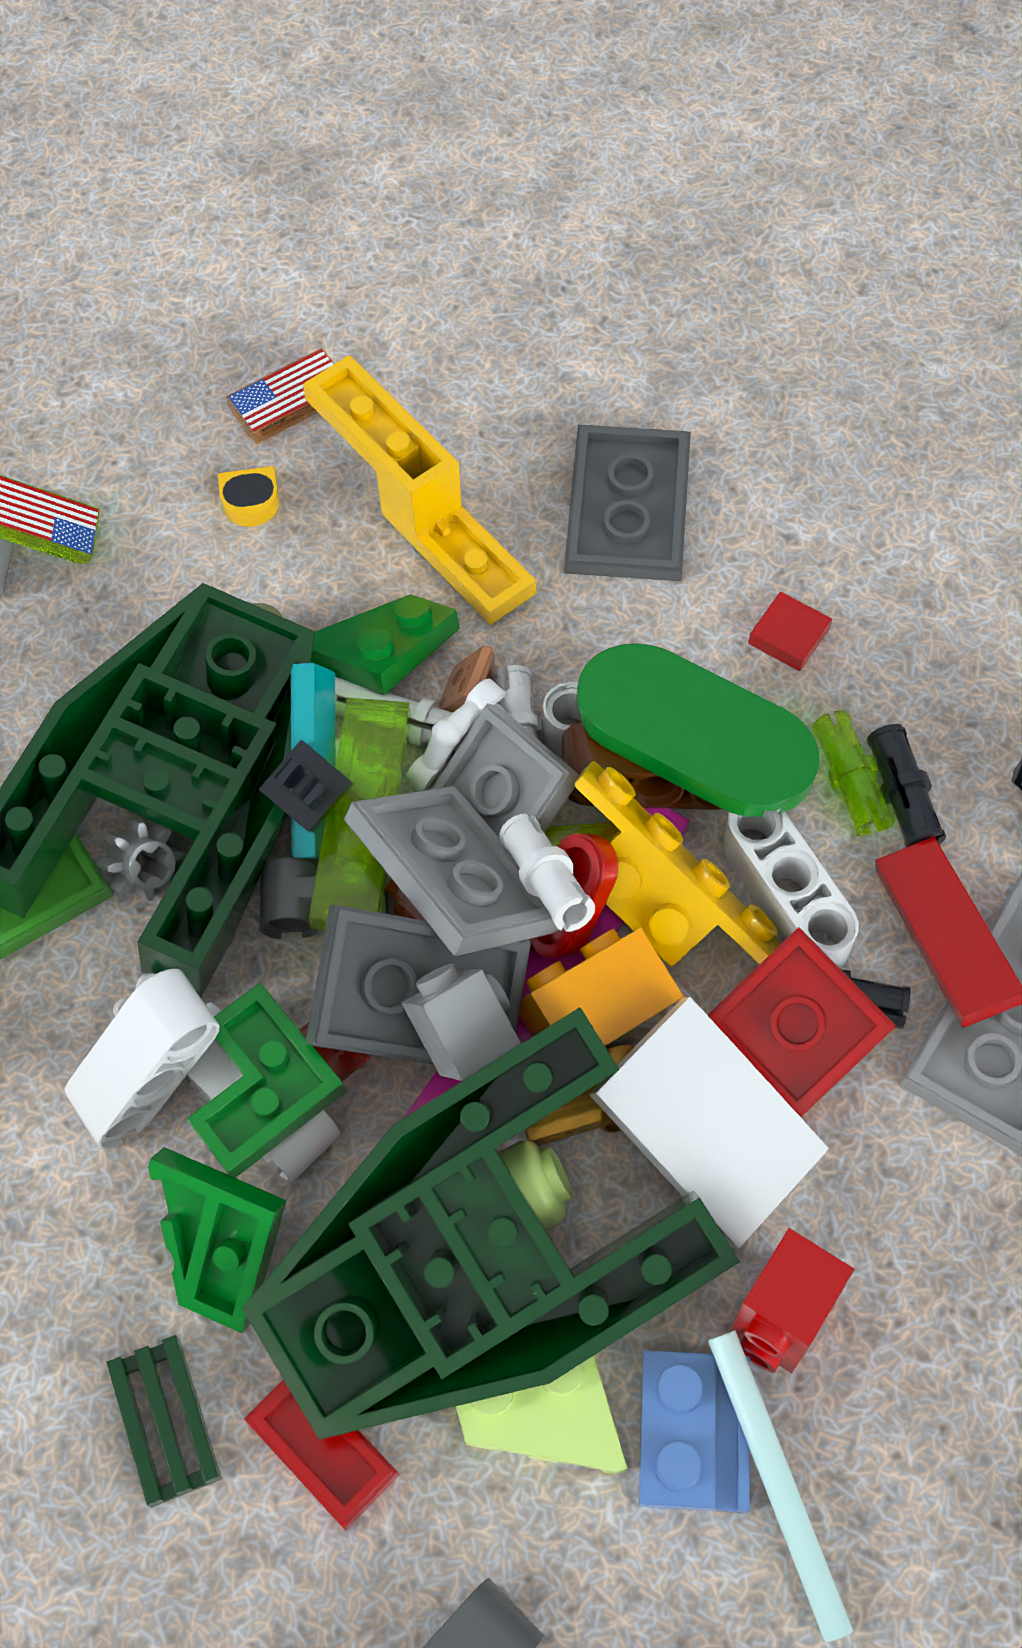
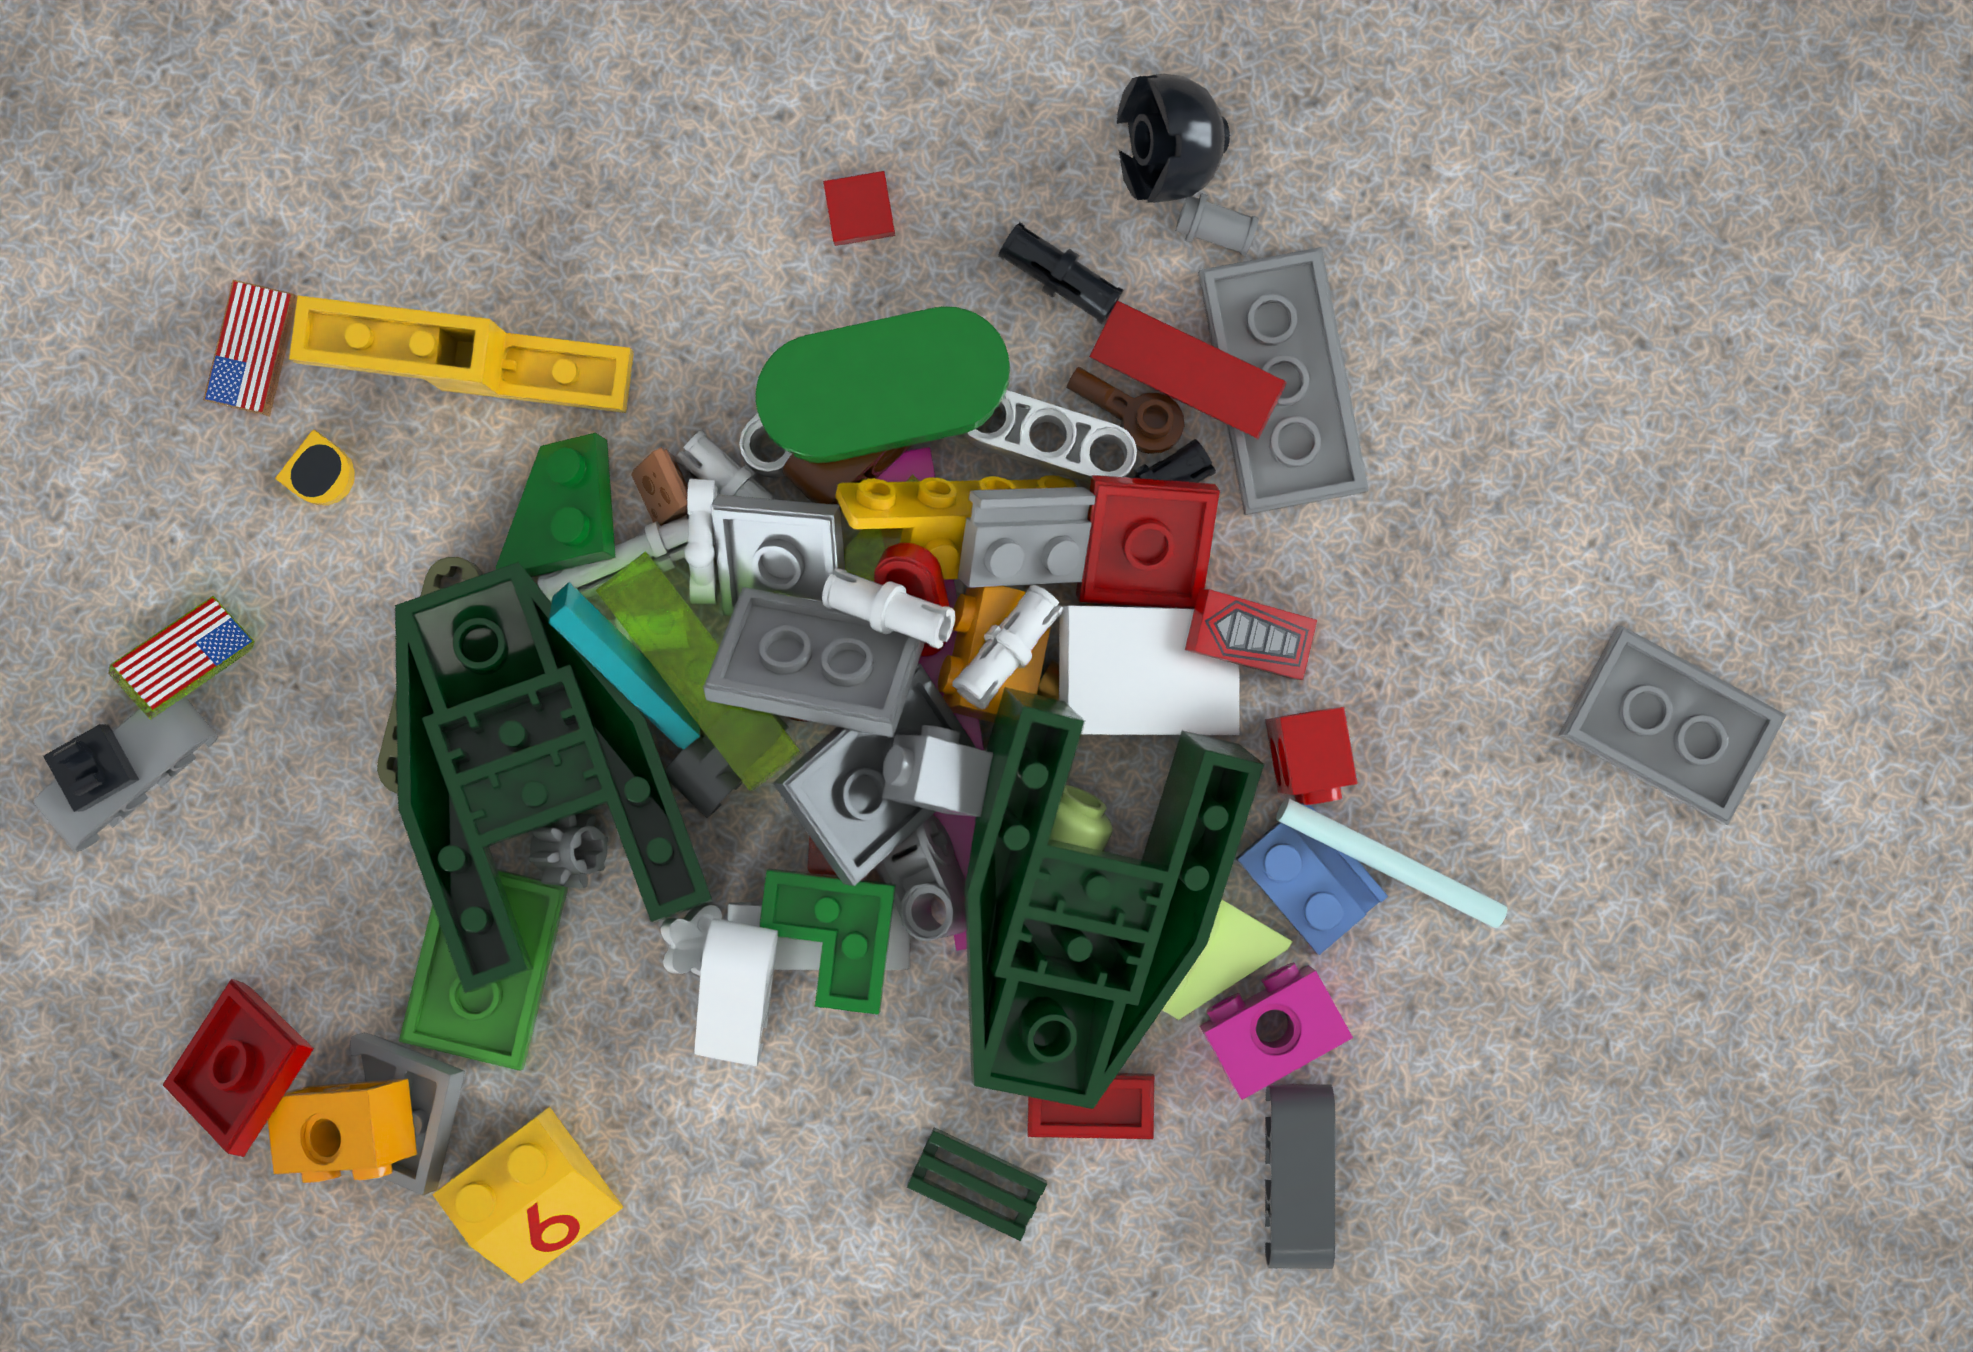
camera: 45 degrees left, 25 degrees up
(217, 1236) = (902, 1053): green wing -> none
(306, 786) = (650, 698): black tile -> none
(372, 1103) = (921, 876): none -> light grey piece
(572, 1564) = (1311, 1030): none -> dark pink brick
(611, 982) = (1007, 646): none -> white pin
(628, 503) = (626, 198): dark grey tile -> none
(704, 921) = (1026, 536): none -> light grey plate
(822, 1172) = (1250, 634): none -> tile
(852, 773) = (1012, 295): clear neon green pin -> none
(882, 944) = (1150, 418): none -> reddish brown plate

